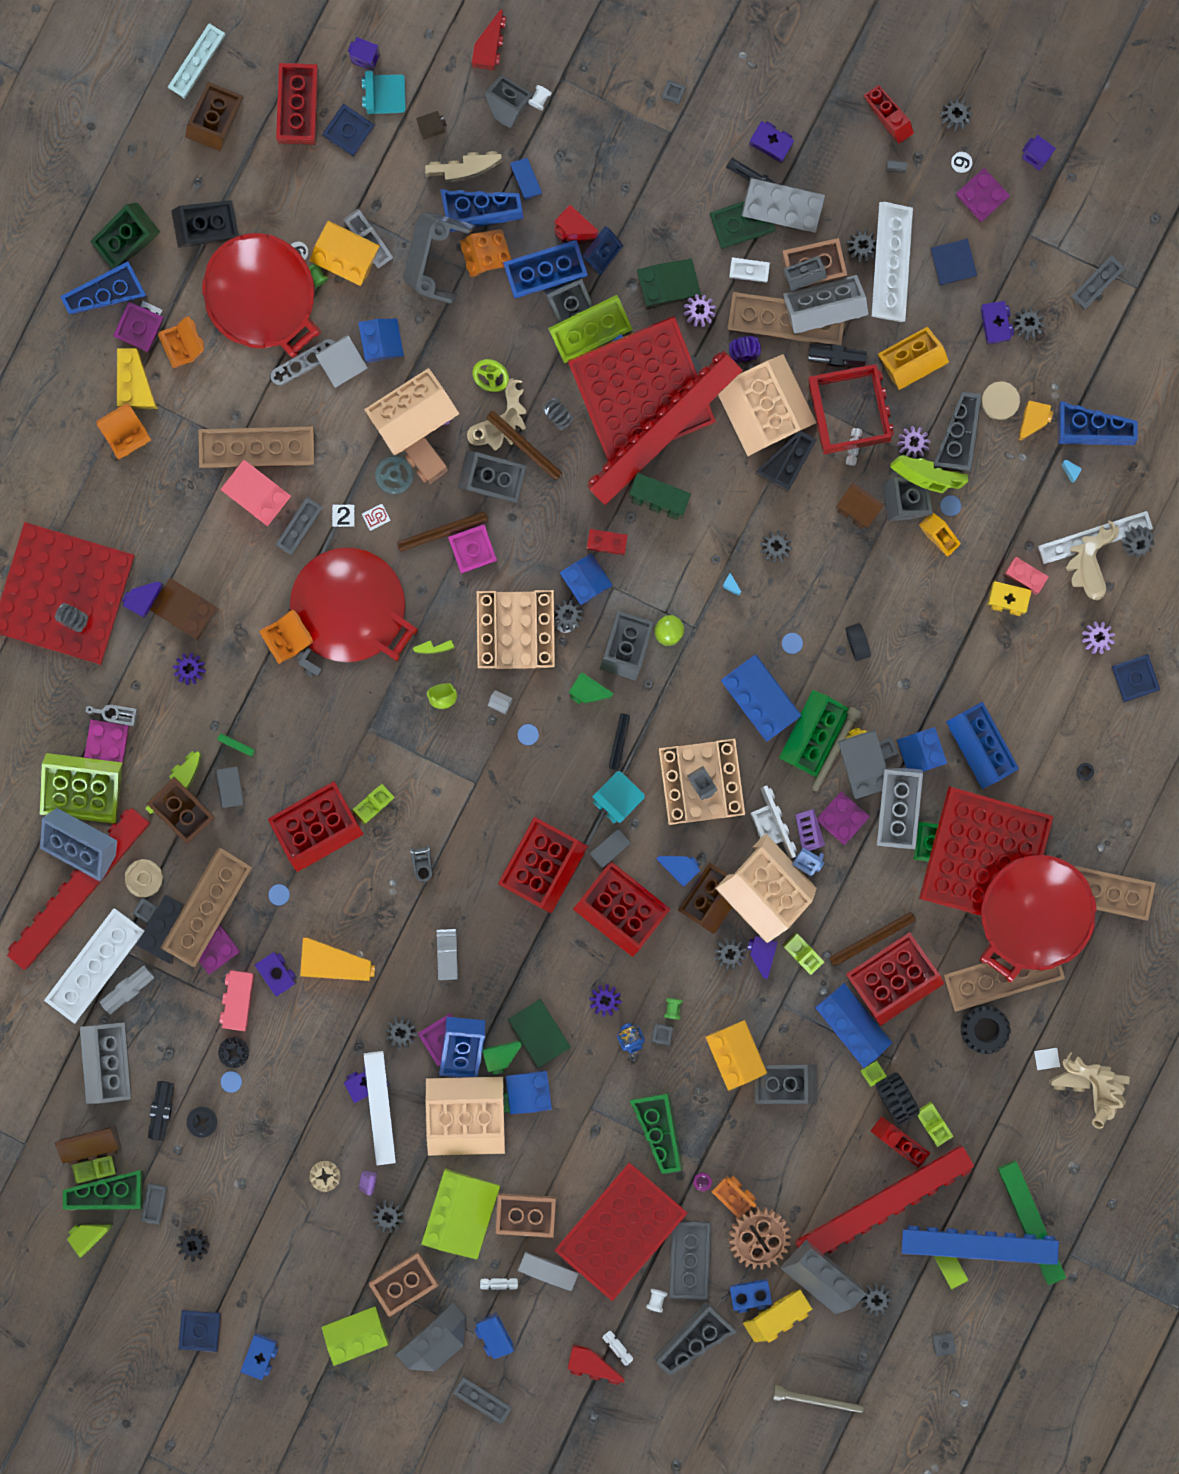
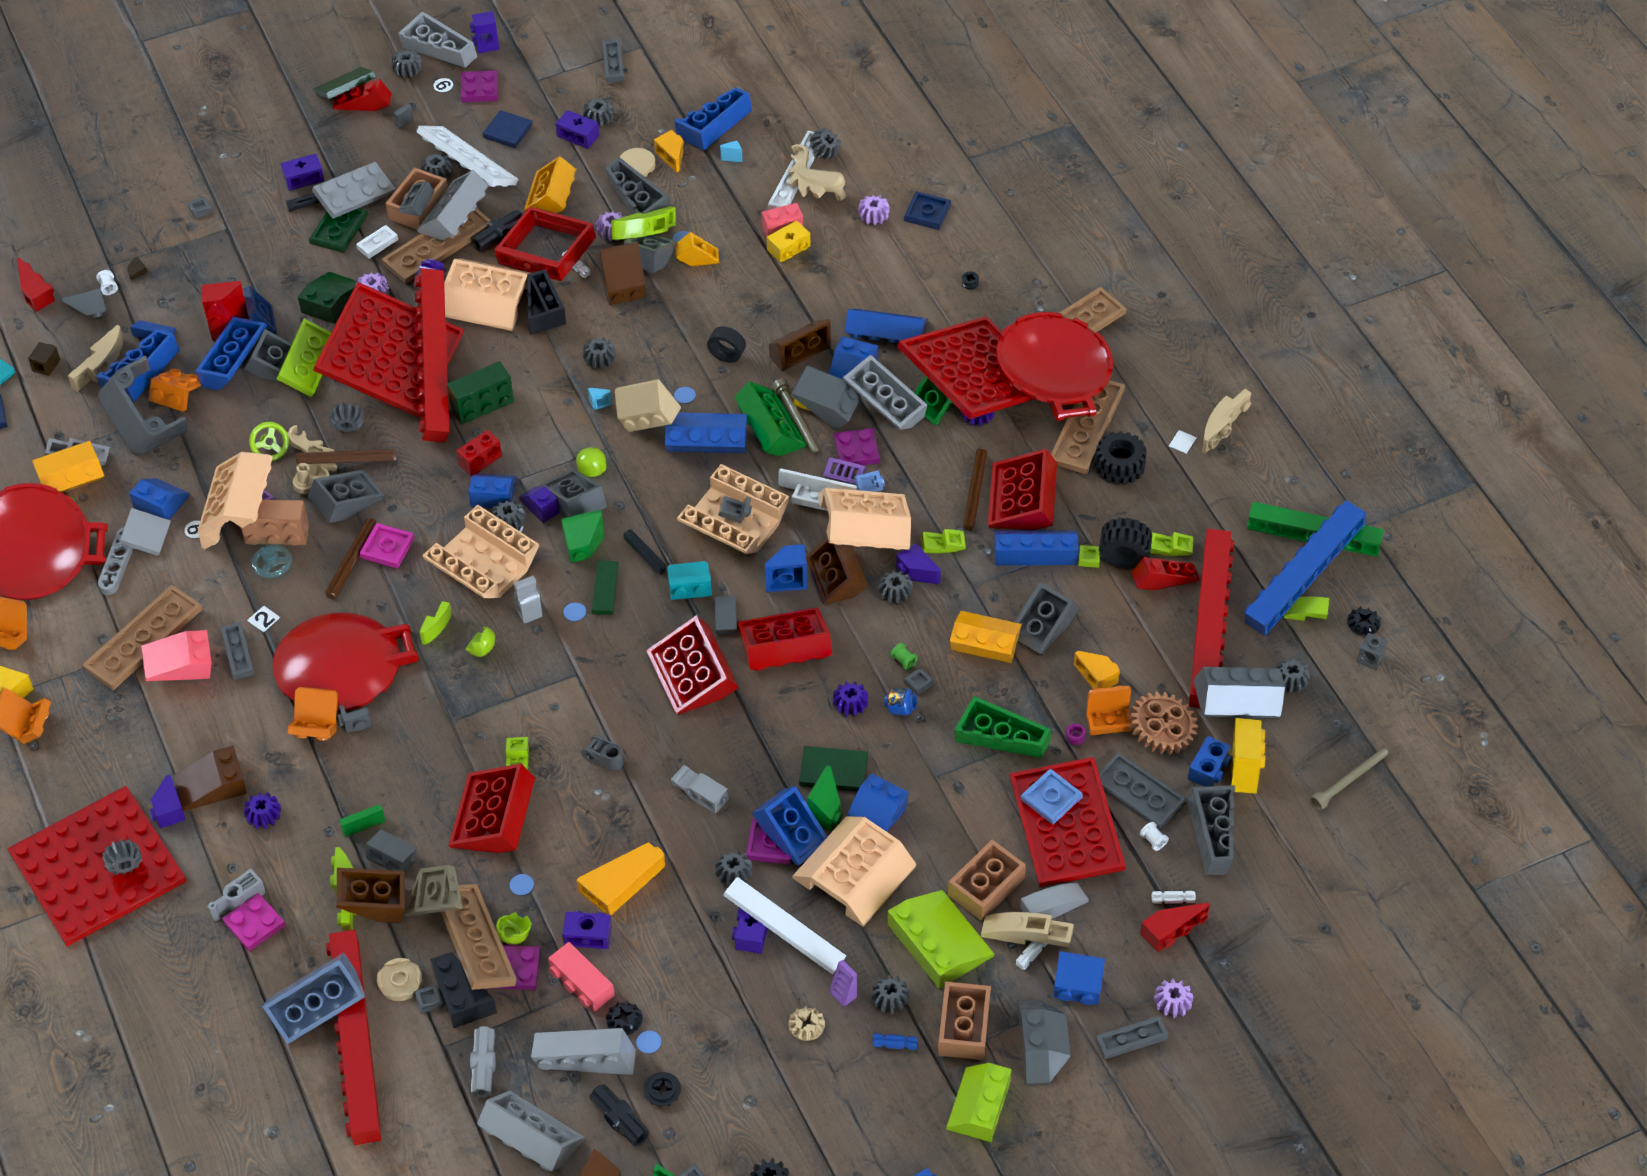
camera: 50 degrees left, 35 degrees down
(81, 787) = (268, 966): lime slope -> none
(94, 965) = (435, 1075): white plate -> none
(183, 1051) = (585, 1051): none -> light grey wedge
(212, 857) = (434, 891): none -> dark tan wing
(236, 924) = (513, 928): none -> lime hair
(357, 1245) = (895, 1041): none -> blue axle
(376, 517) = (290, 597): white sticker -> none
(377, 390) = (191, 529): none -> white sticker
(507, 1272) = (1024, 926): none -> tan slope
(533, 1414) = (1168, 991): none -> lavender gear
(564, 740) = (605, 587): none -> dark green tile
(573, 103) = (136, 268): none -> dark brown tile
(600, 624) = (541, 503): none -> dark purple slope
(629, 1208) = (1051, 796): none -> medium blue tile
(739, 640) = (645, 405): none -> tan slope
(770, 1158) = (1097, 669): none -> light orange slope
(892, 85) = (345, 82): none -> dark green tile
(907, 694) = (801, 344): none -> reddish brown slope
(967, 1308) = (1364, 628): none -> black gear
(999, 113) = (437, 40): none -> light grey wedge
(1106, 1091) = (1246, 410): tan animal -> none

